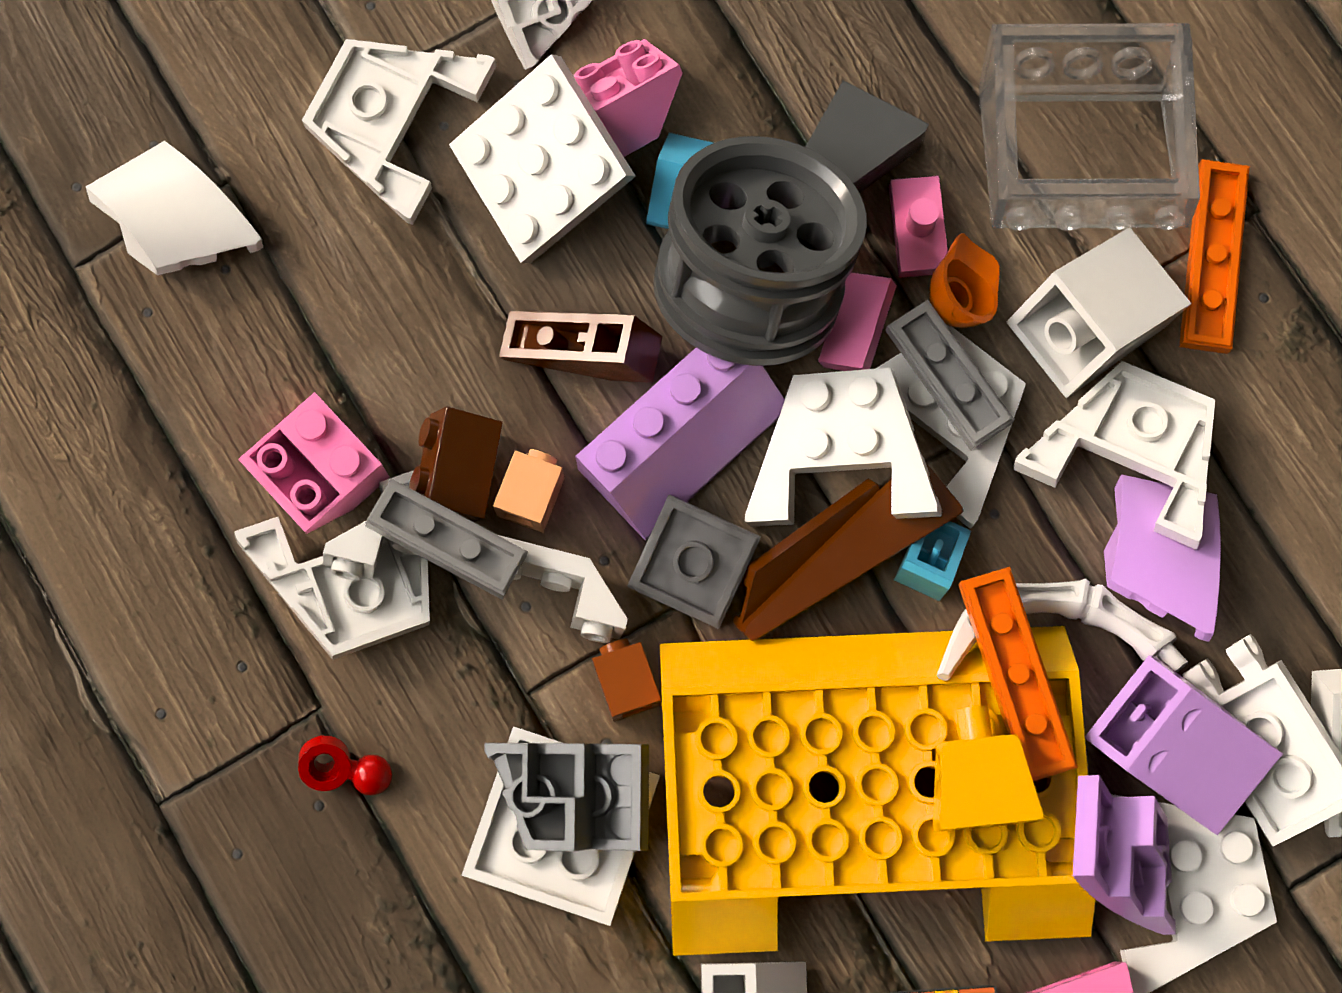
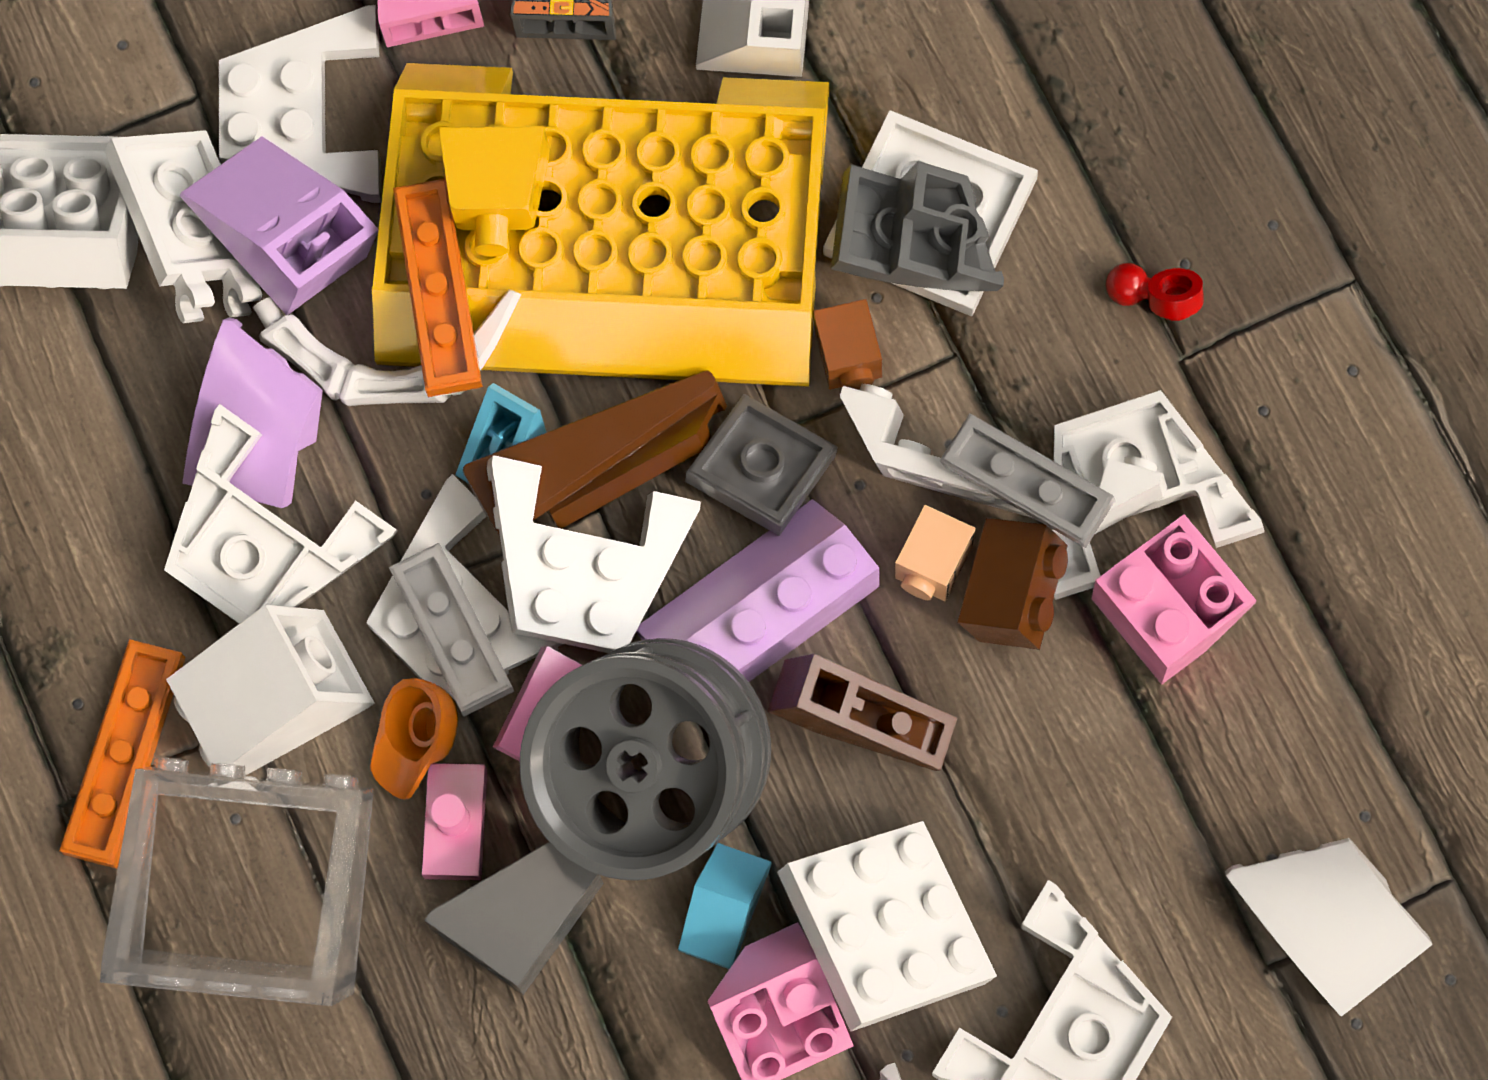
camera: 165 degrees left, 5 degrees down
(1123, 854) = (362, 116): lavender slope -> none

